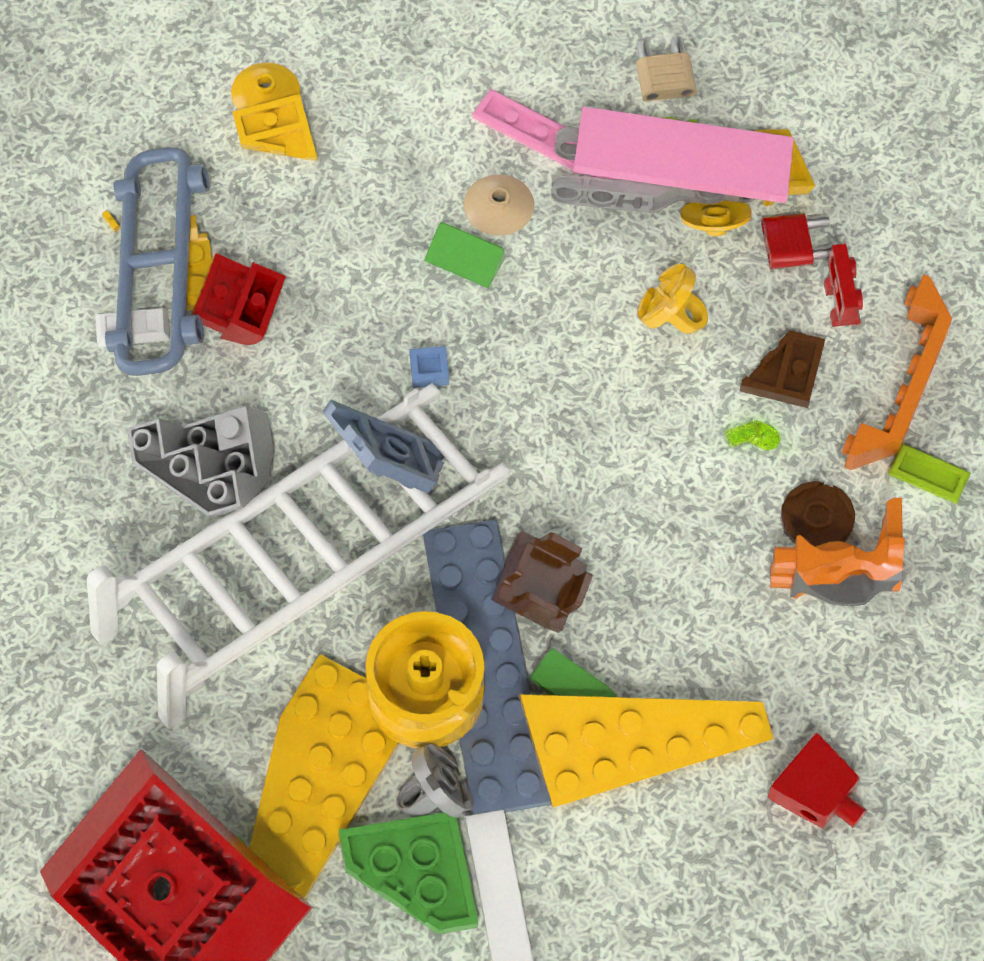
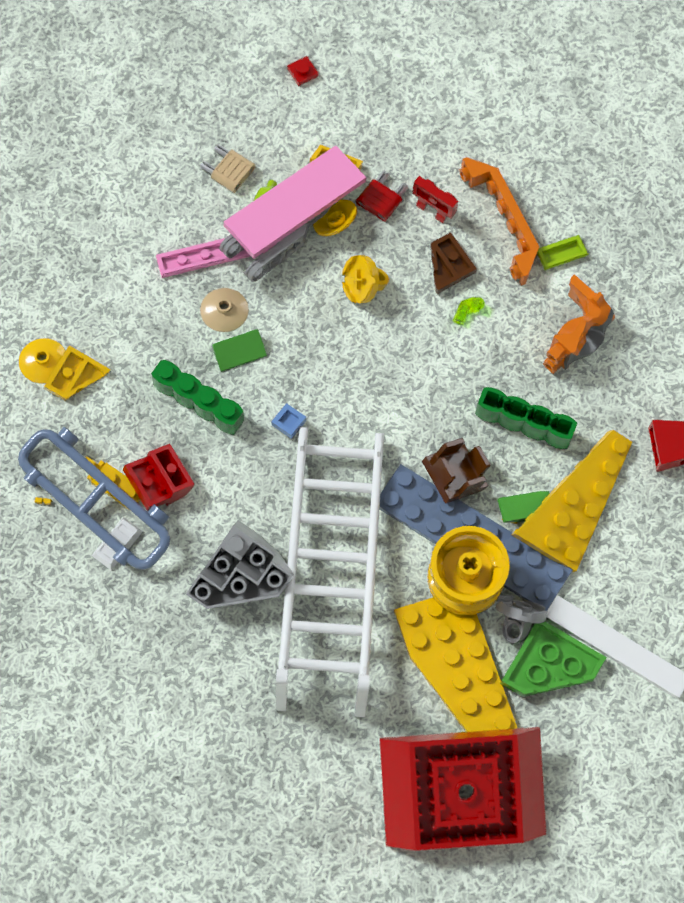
camera: 50 degrees left, 5 degrees up
(367, 260) = (193, 395): none -> green brick
(387, 448) = (325, 478): sand blue wing -> none
(683, 602) = (532, 420): none -> green brick
(816, 524) = (533, 328): reddish brown tile -> none
(858, 42) = (302, 71): none -> red plate

